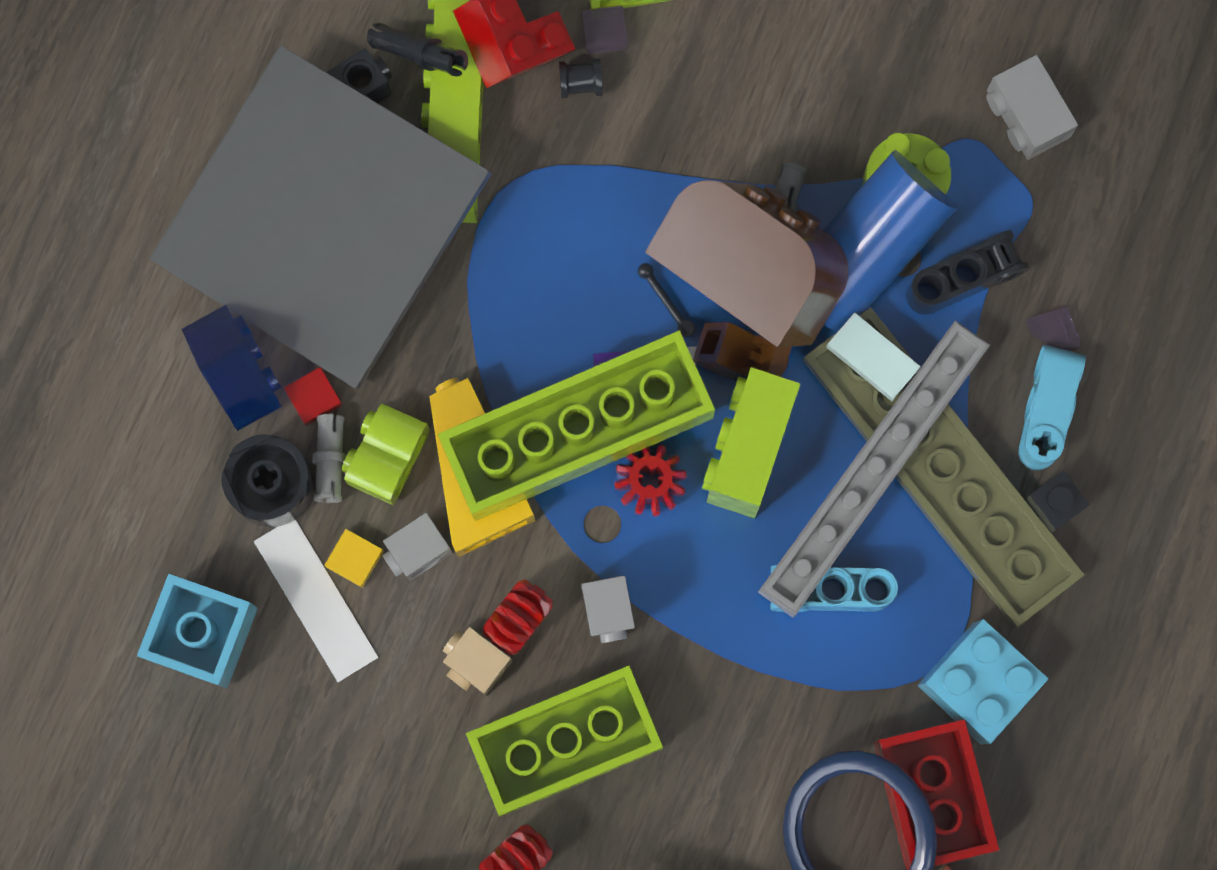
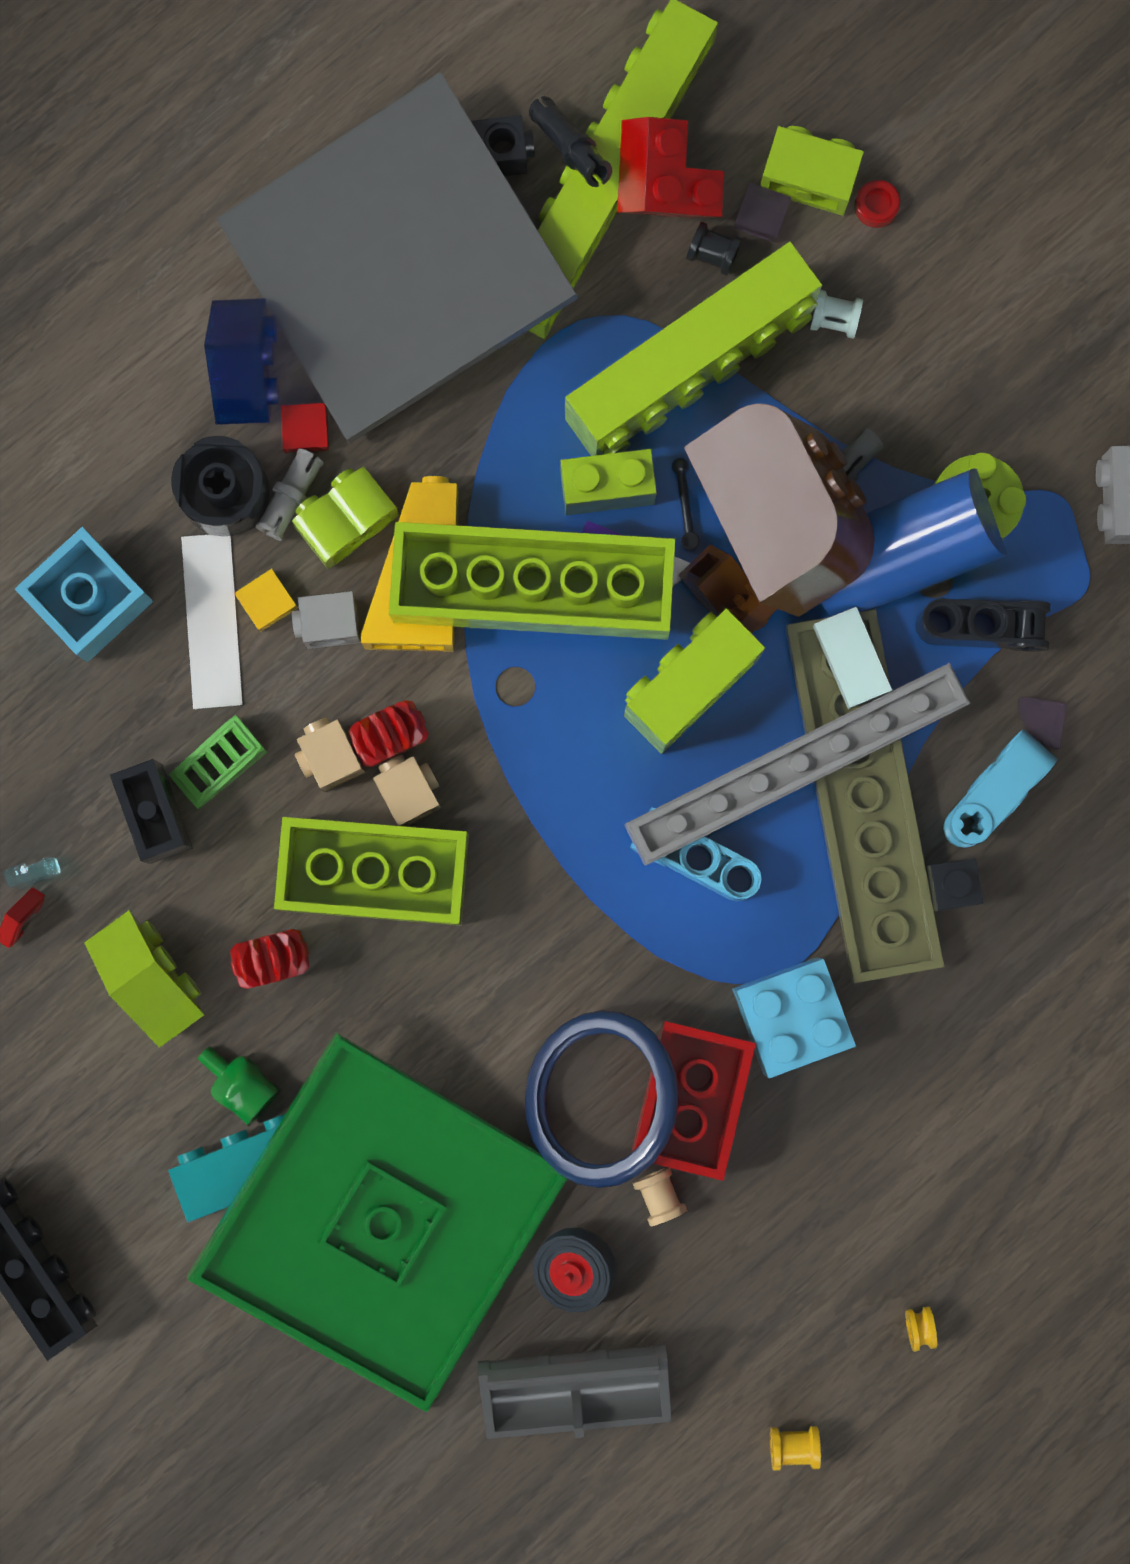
camera: 25 degrees right, 5 degrees up
(349, 787) = (151, 811): none -> black brick
(404, 707) = (233, 726): none -> bright green slope
(557, 656) = (407, 789): none -> tan brick
(593, 313) = (608, 482): none -> lime brick
(608, 608) = (475, 769): light grey brick -> none
(609, 172) = (693, 353): none -> lime brick
(649, 494) = (570, 680): red gear -> none
(710, 82) = (837, 314): none -> light aqua bush

